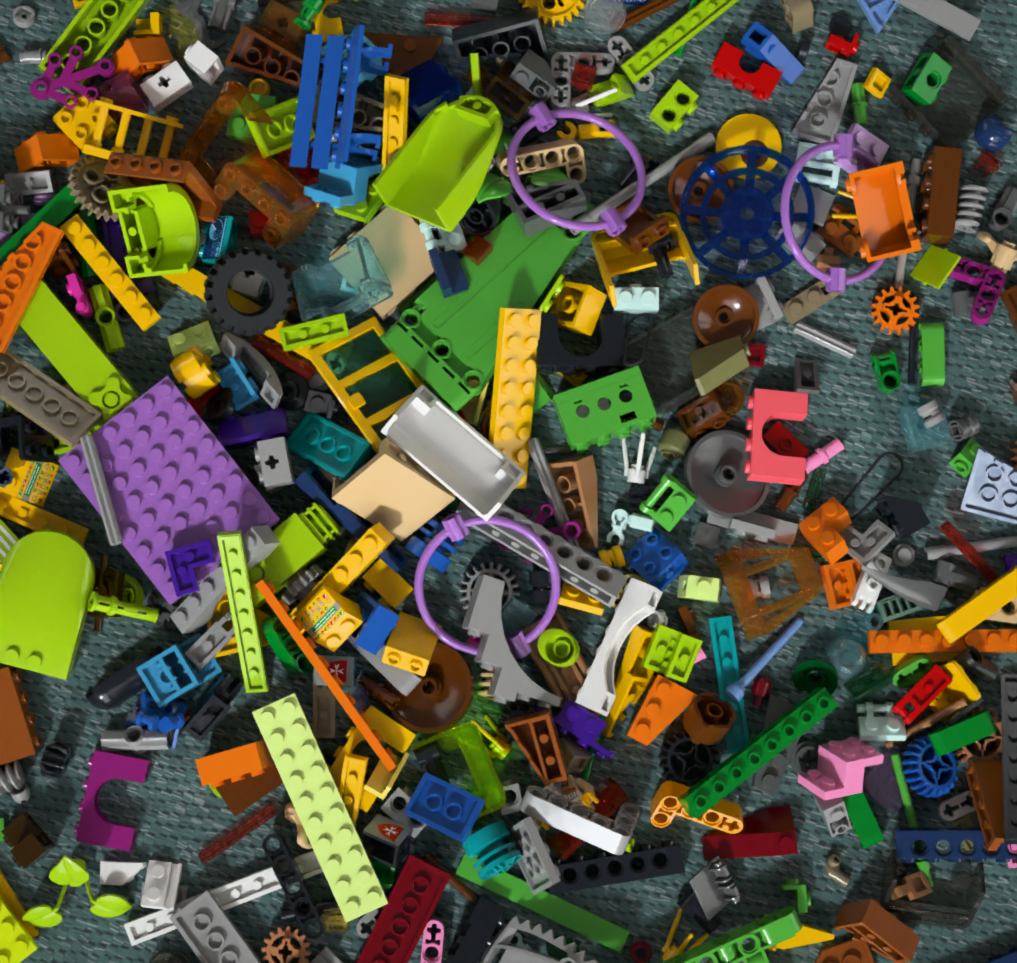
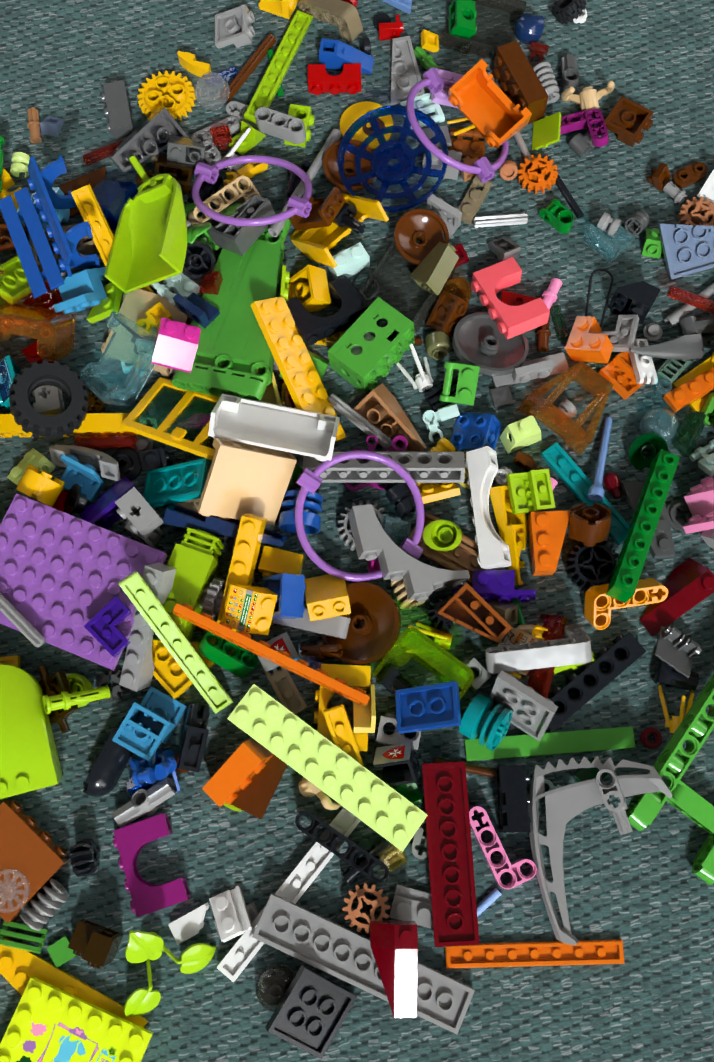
camera: 25 degrees left, 10 degrees down
(23, 795) = (69, 906): light grey hinge -> none
(210, 643) = (164, 686): light grey hinge -> none
(237, 833) = (271, 833): clear red axle -> none
(314, 332) = (118, 407): lime plate -> none
(402, 308) = (176, 345): none -> slope
(403, 253) = (154, 316): none -> yellow plate
(649, 93) = (280, 125): none -> light grey beam
(867, 289) = (508, 170): none -> nougat tile
(932, 354) = (582, 188): bright green beam -> none

